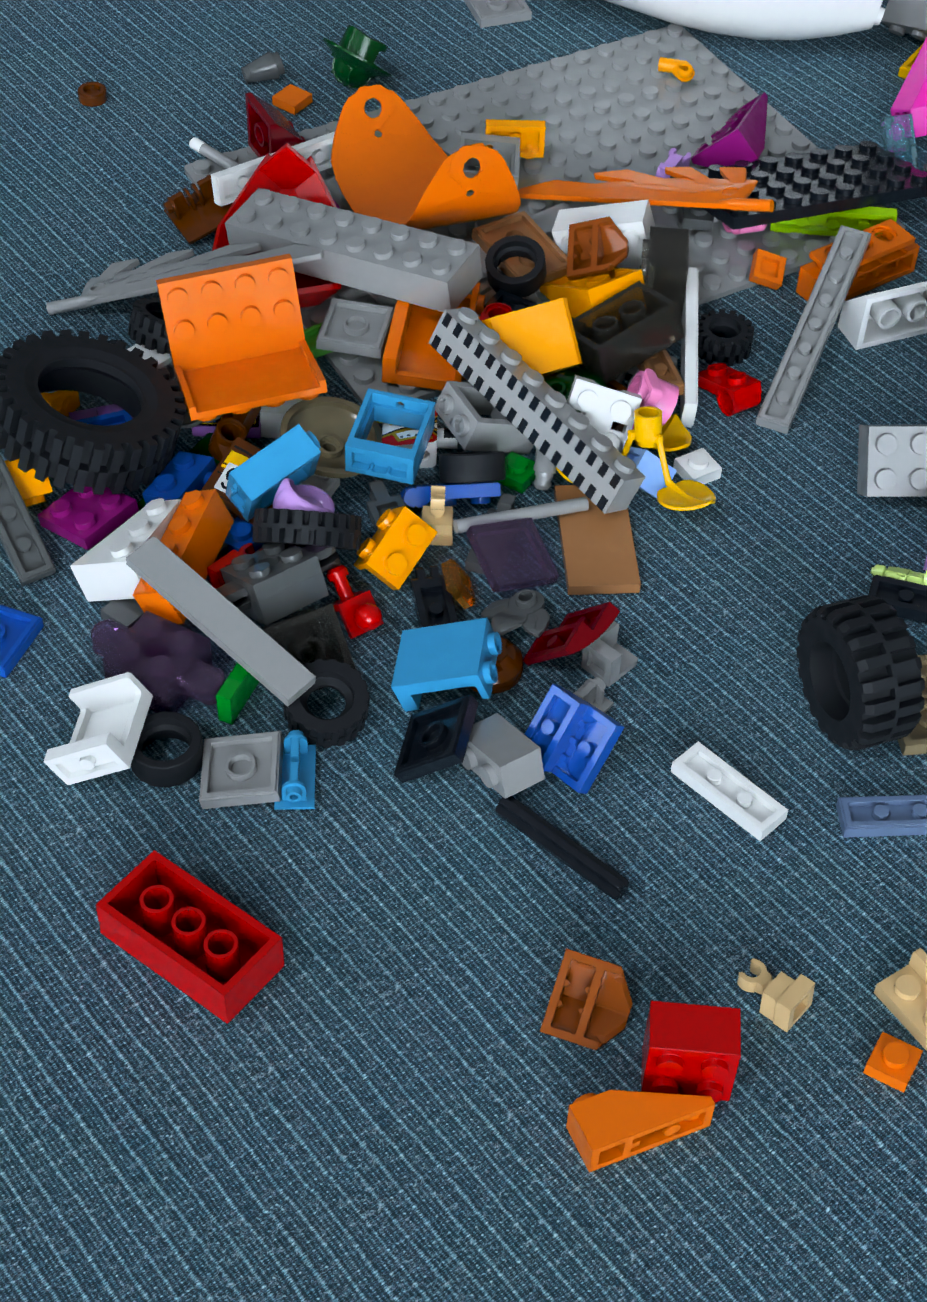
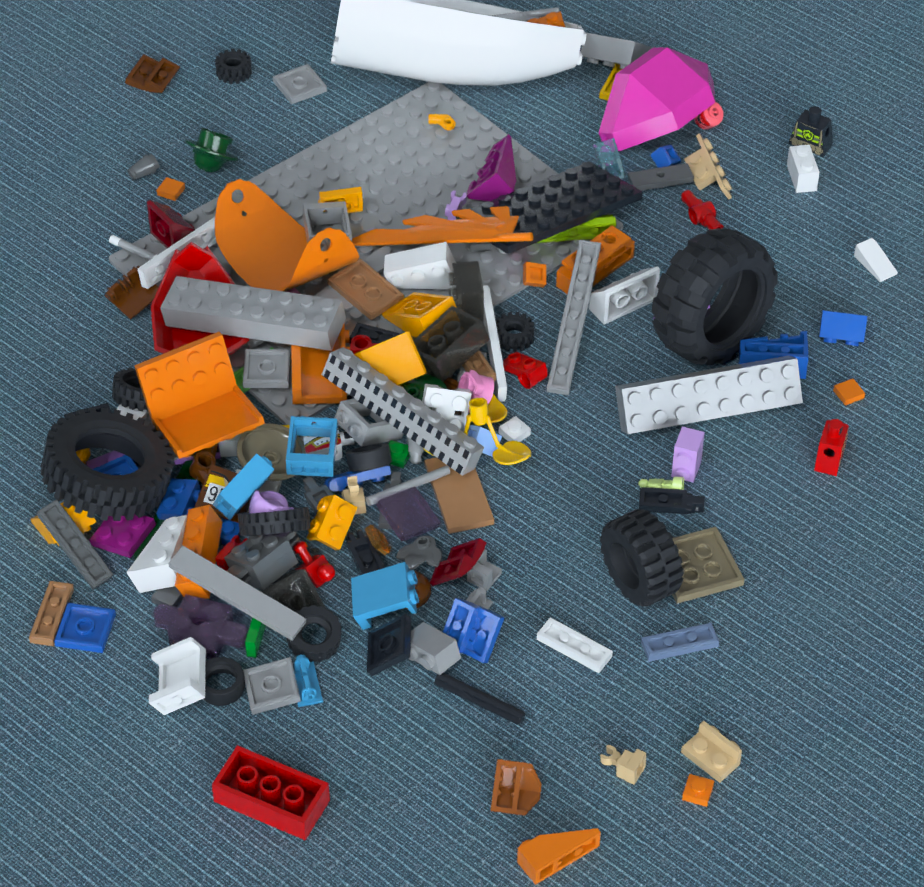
camera: 10 degrees left, 0 degrees up
(92, 94) = (23, 208): reddish brown tile -> none
(122, 282) = (124, 350): light grey animal -> none
(512, 247) = (360, 290): black tyre -> none
(595, 248) = (416, 283): dark orange slope -> none
(691, 1049) = (581, 803): red brick -> none

